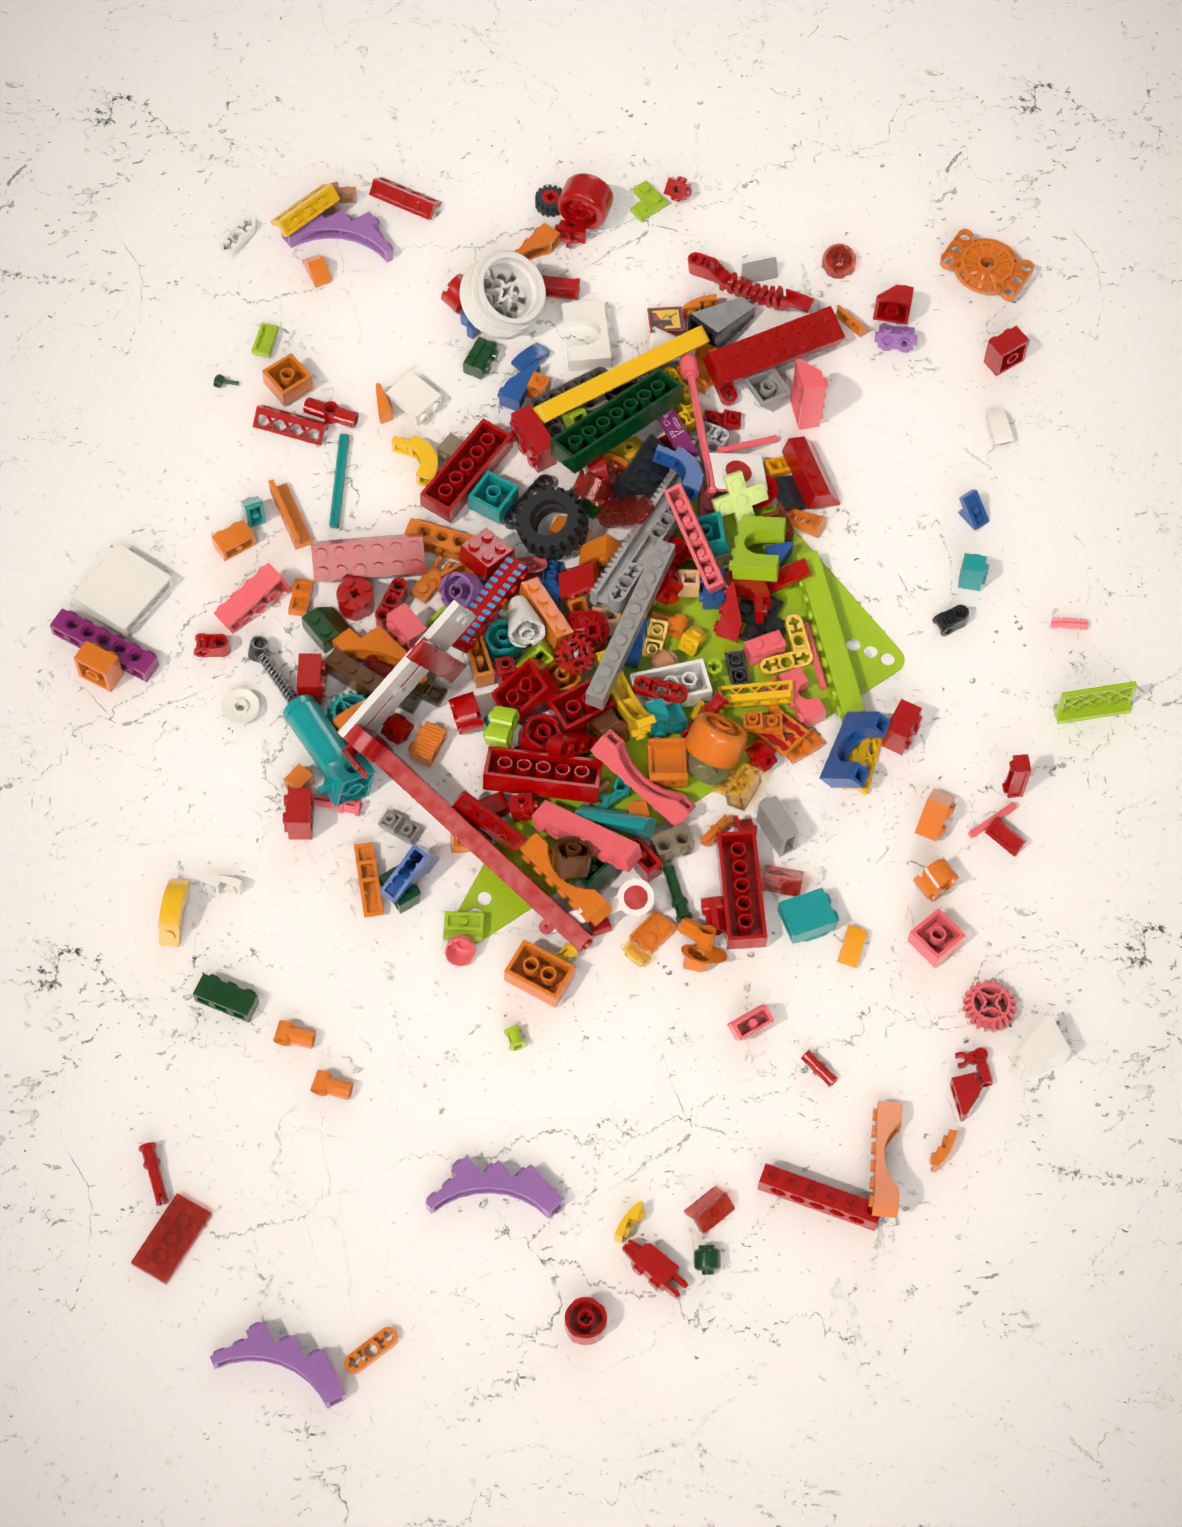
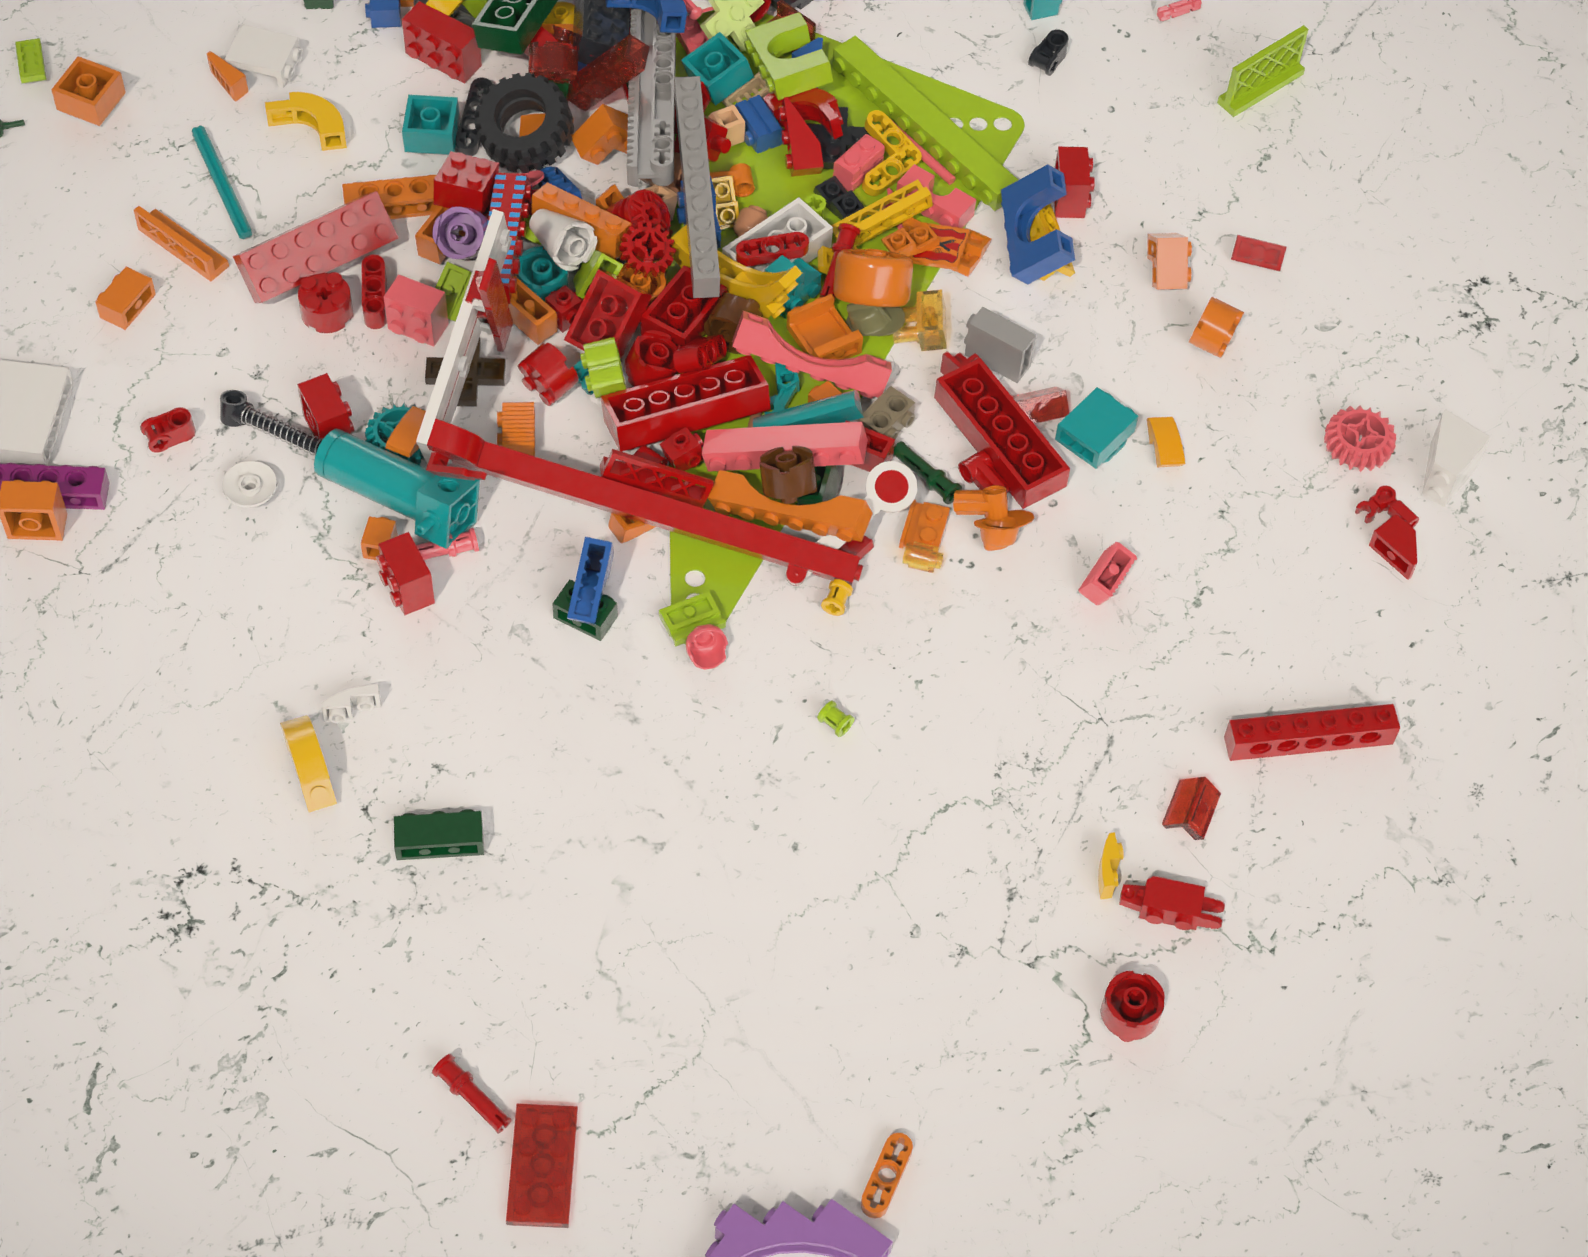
camera: 30 degrees left, 5 degrees down
(252, 598) = (191, 352): coral wedge -> none
(253, 511) = (133, 252): teal slope -> none
(285, 416) = (116, 133): red fence -> none
(289, 1033) = (547, 842): orange piece -> none
(300, 597) = (251, 330): orange slope -> none
(323, 409) = (165, 109): red piece -> none
(323, 626) = (305, 351): dark green slope -> none
(326, 1084) = (632, 880): orange piece -> none
(352, 673) = (381, 388): reddish brown brick -> none
(368, 879) = (538, 617): orange slope -> none
(376, 642) = (385, 346): orange arch -> none
(377, 666) = (403, 370): clear red piece -> none
(397, 728) = (472, 420): red brick -> none
(399, 827) = (538, 541): light grey slope -> none
(426, 585) = (405, 253): orange hinge -> none
(448, 447) = (344, 93): dark tan brick -> none
(457, 478) = (378, 108): red brick -> none
(496, 1179) = (957, 884): medium lavender arch -> none
(539, 973) = (822, 629): orange brick -> none
(578, 579) = (597, 170): red slope -> none
(692, 640) = (768, 189): yellow bracket -> none
(695, 538) = (713, 67): coral brick -> none
(707, 1259) = (1227, 865): dark green head -> none
(710, 836) = (927, 383): orange axle -> none
(761, 755) = (931, 275): red brick -> none
(790, 575) = (844, 70): red tile -> none
(816, 525) = (824, 14): orange slope -> none
(819, 1068) = (1215, 591): pin -> none
(885, 1191) = (1391, 686): orange arch -> none
(936, 938) = (1256, 390): coral brick -> none
(939, 1157) = (1414, 608): orange slope -> none
(984, 825) = (1230, 243): coral bar -> none
(1017, 776) = (1237, 178): red container -> none

